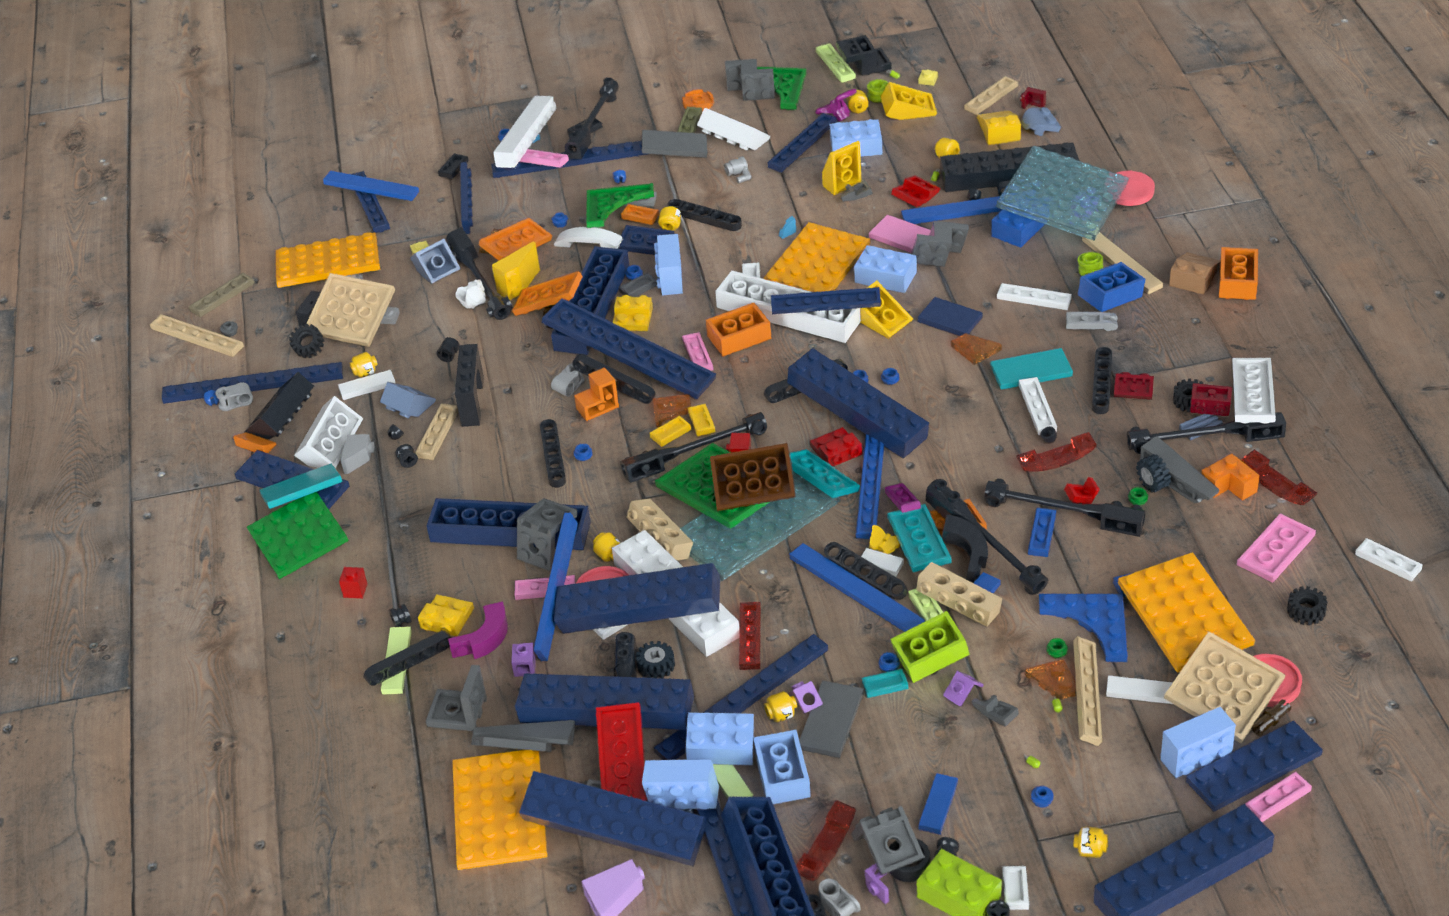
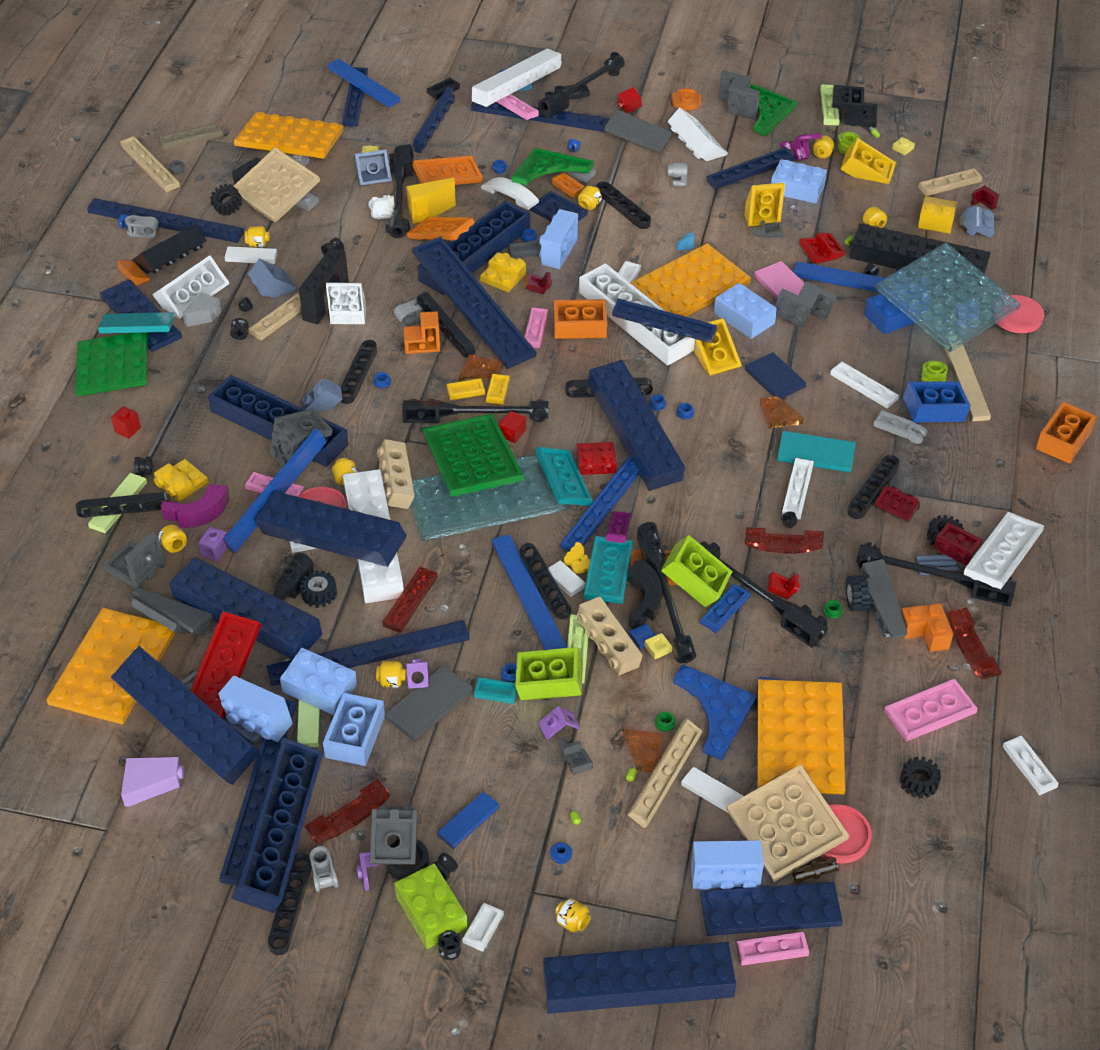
camera: 20 degrees right, 5 degrees up
(486, 666) = (172, 538): none -> yellow head
(504, 393) = (346, 303): none -> white slope
(536, 486) = (322, 397): none -> sand blue slope
(647, 117) = (629, 100): none -> red brick
(674, 313) = (538, 284): none -> dark red bracket
(690, 120) = (662, 117): olive tile -> none
(752, 476) = (494, 457): reddish brown slope -> none
(1003, 507) = (696, 571): none -> lime brick
(1007, 586) = (658, 646): none -> light yellow plate
(1193, 272) = (1025, 415): medium nougat slope -> none

